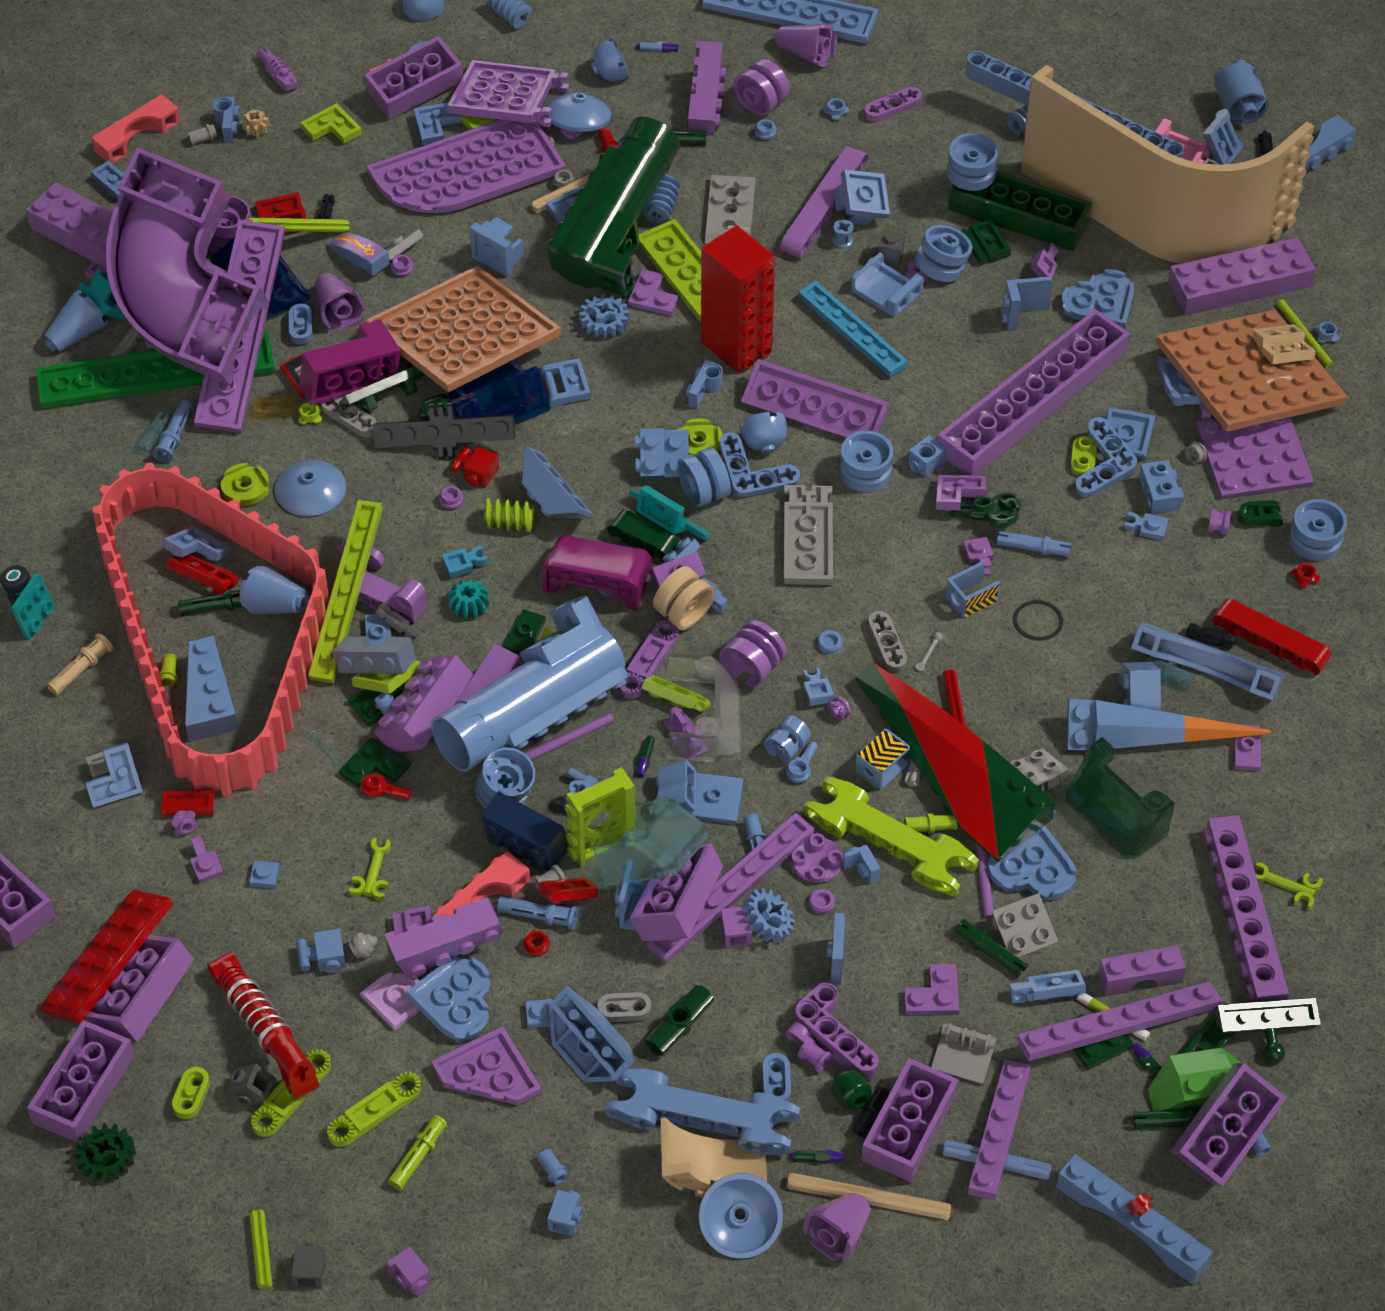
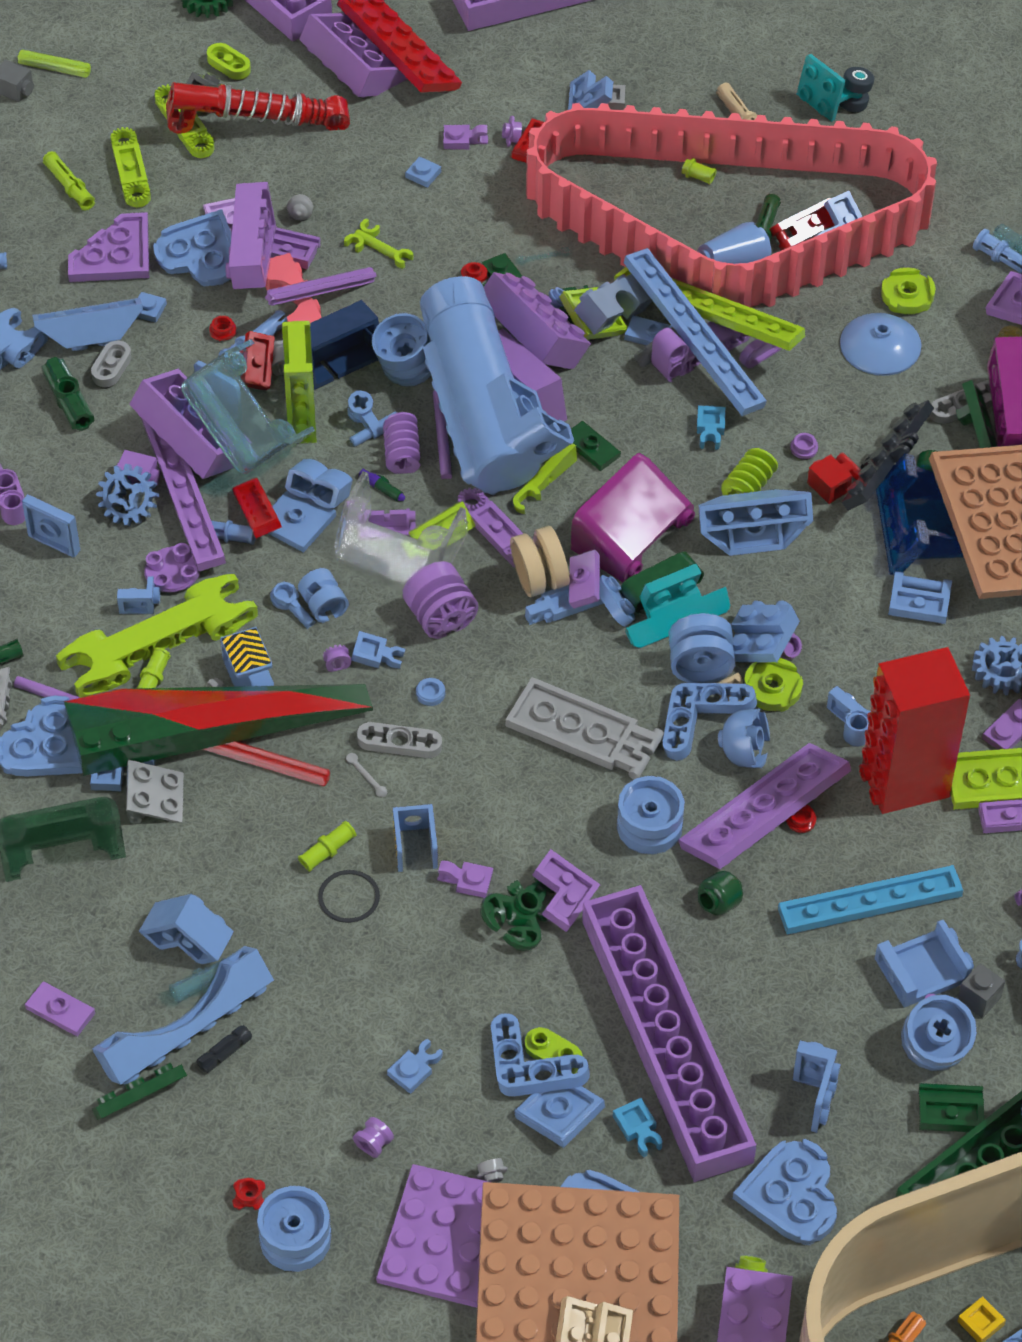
camera: 115 degrees right, 0 degrees up
(208, 698) = (654, 185): medium blue wedge -> none
(313, 410) = (979, 366): lime plate -> none
(327, 951) = (309, 179): medium blue brick -> none
(382, 588) = (695, 332): none -> medium blue plate
(463, 872) = (320, 286): none -> medium lavender axle
(468, 598) = (656, 410): teal gear -> none
(598, 751) = (401, 443): none -> medium lavender piece
(732, 816) = (256, 507): none -> red plate
(822, 901) = (124, 556): medium lavender tile -> none
(903, 406) = (720, 893): none -> dark green head
(926, 456) = (632, 871): medium blue brick -> none
(1009, 645) = (327, 846): none -> lime pin
(1032, 543) = (446, 939): medium blue pin -> none
(1044, 262) = (880, 1154): medium lavender plate -> none
(1108, 391) = (637, 1122): none -> dark azure plate
(1136, 726) = (153, 882): medium blue plate -> none
(1160, 487) = (457, 1100): medium blue brick -> none
(1169, 300) = (751, 1263): none -> lime plate
(1252, 513) = (366, 1182): dark green plate -> none
(1272, 635) = (180, 1104): red beam -> none
(1296, 670) = (138, 1089): none -> dark green plate

